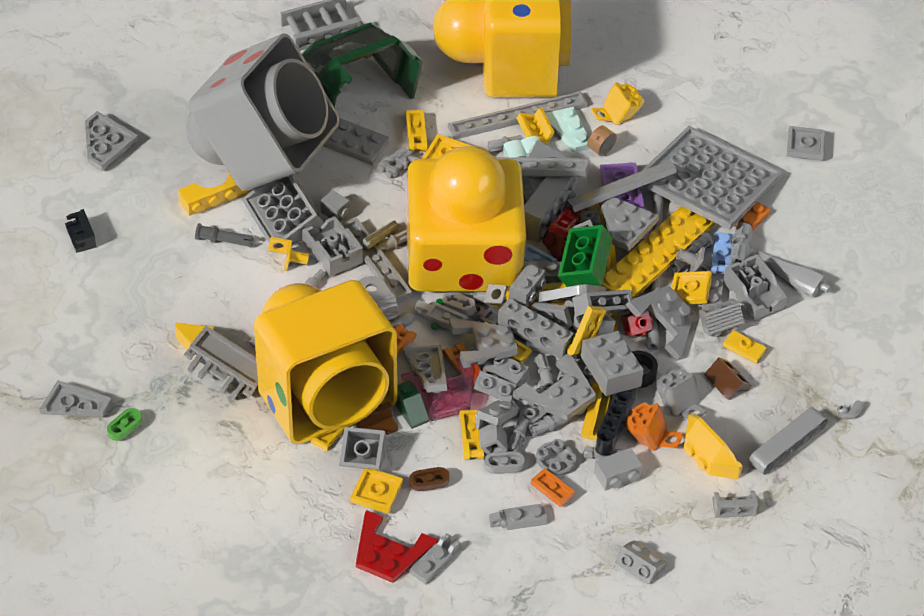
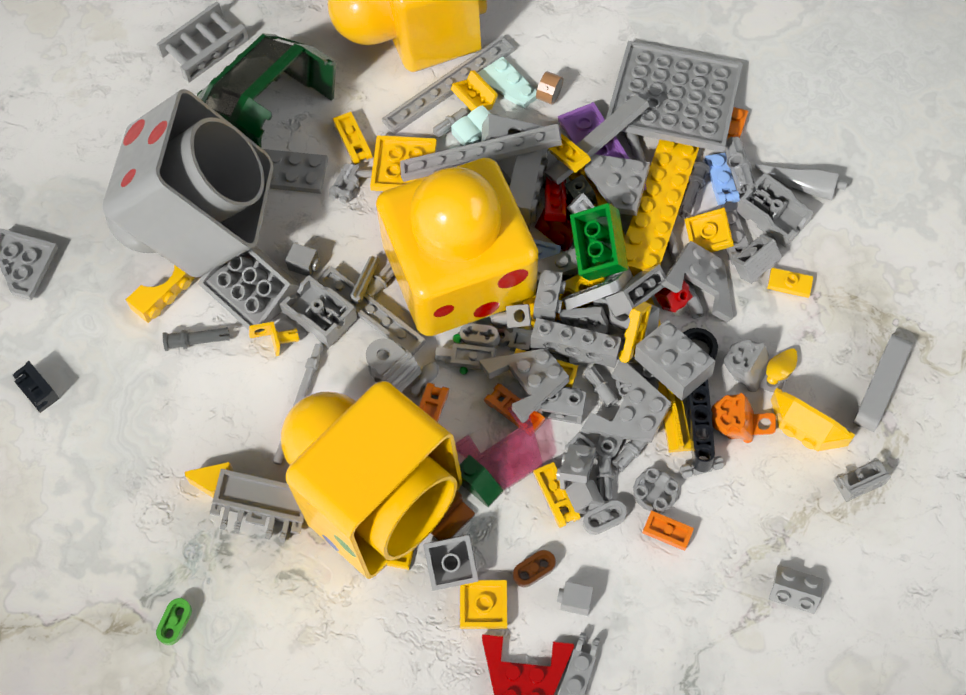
camera: 15 degrees left, 15 degrees up
(74, 401) = (106, 611): light grey wing -> none
(428, 366) = (479, 427): light grey wing -> none
(453, 509) = (575, 598): none -> light grey brick
(494, 386) = (559, 429): light grey hinge -> none
(519, 517) = (648, 579): light grey hinge -> none
(591, 187) = (570, 154): none -> yellow plate
(618, 469) = (727, 482): light grey brick -> none
(620, 104) = (549, 38): yellow piece -> none
(694, 260) = (703, 200): light grey bracket -> none
(705, 402) = (781, 366): none -> yellow arm
(726, 378) = (789, 328): reddish brown panel -> none
(805, 143) = (750, 22): light grey plate -> none
(849, 413) = (929, 324): light grey arm -> none

